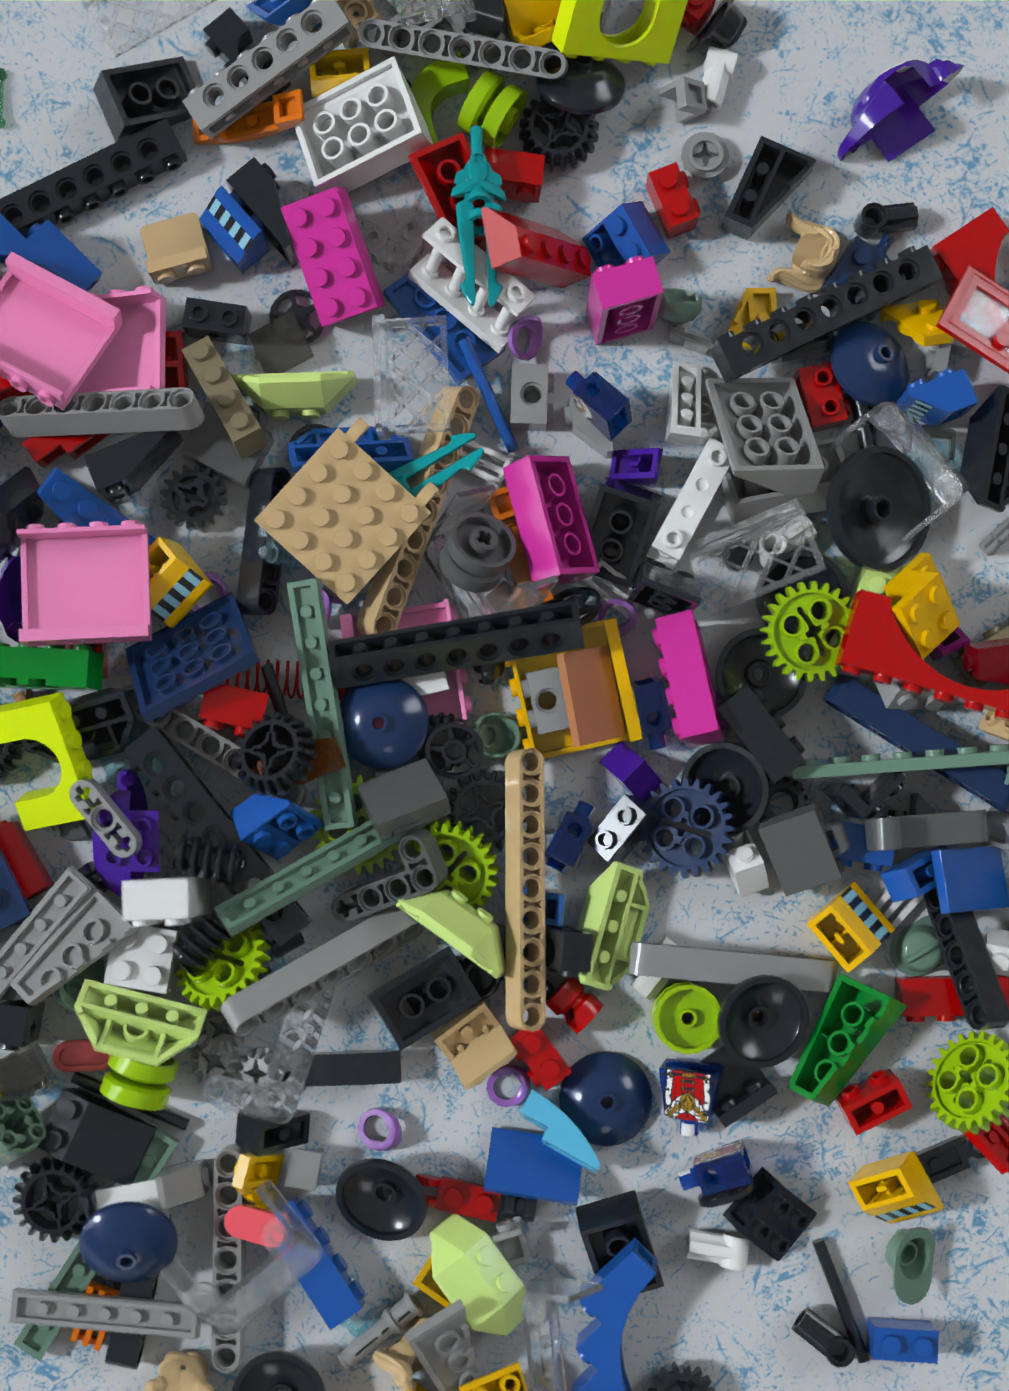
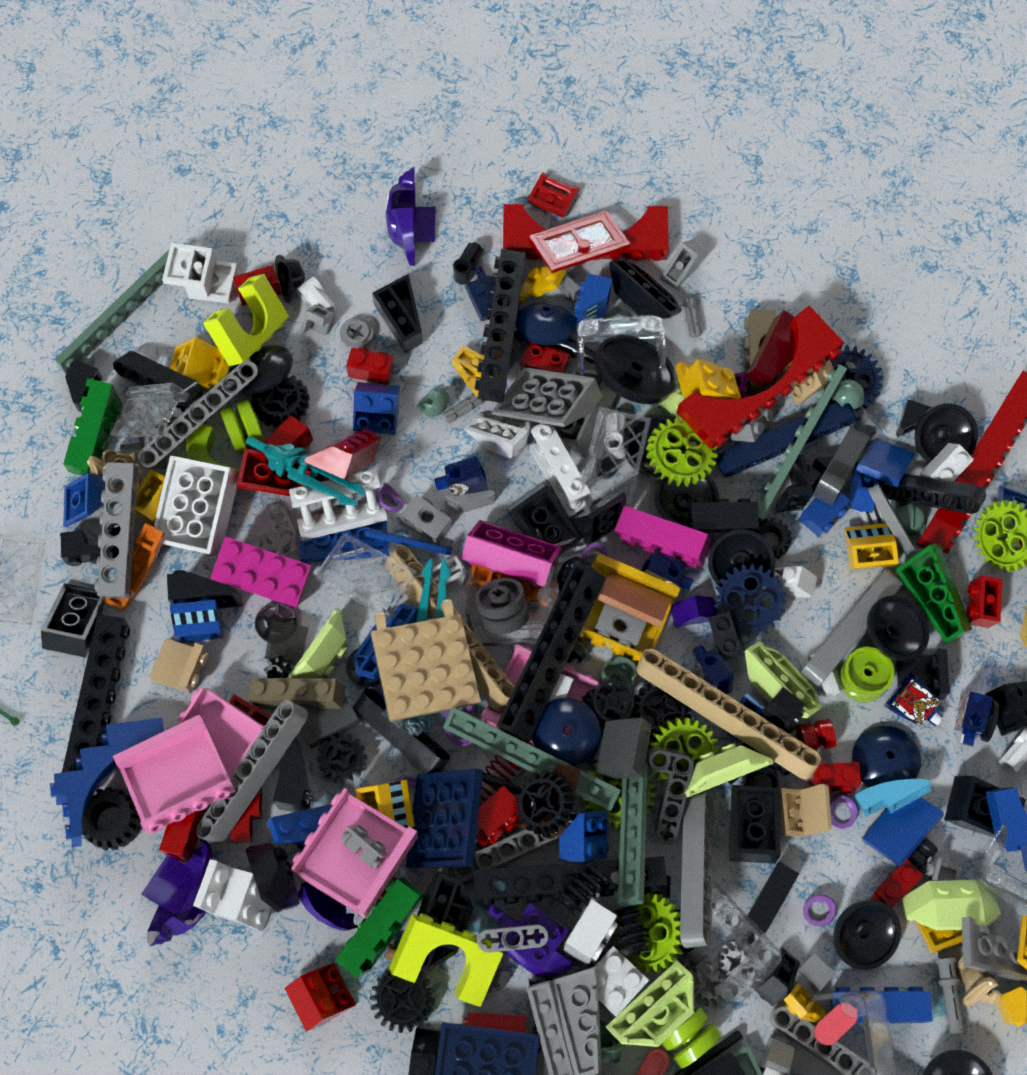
camera: 55 degrees left, 15 degrees down
(101, 576) = (357, 839): none -> light grey hinge
(217, 320) = (246, 665): black brick -> none
(242, 357) = (278, 668): none -> black gear
(624, 299) = (413, 424): dark pink brick -> none
(636, 466) = (513, 486): dark purple slope -> none
(803, 849) = (808, 540): dark grey piece -> none
(812, 257) = (460, 313): tan hair -> none
(898, 931) = (891, 519): none -> light grey beam

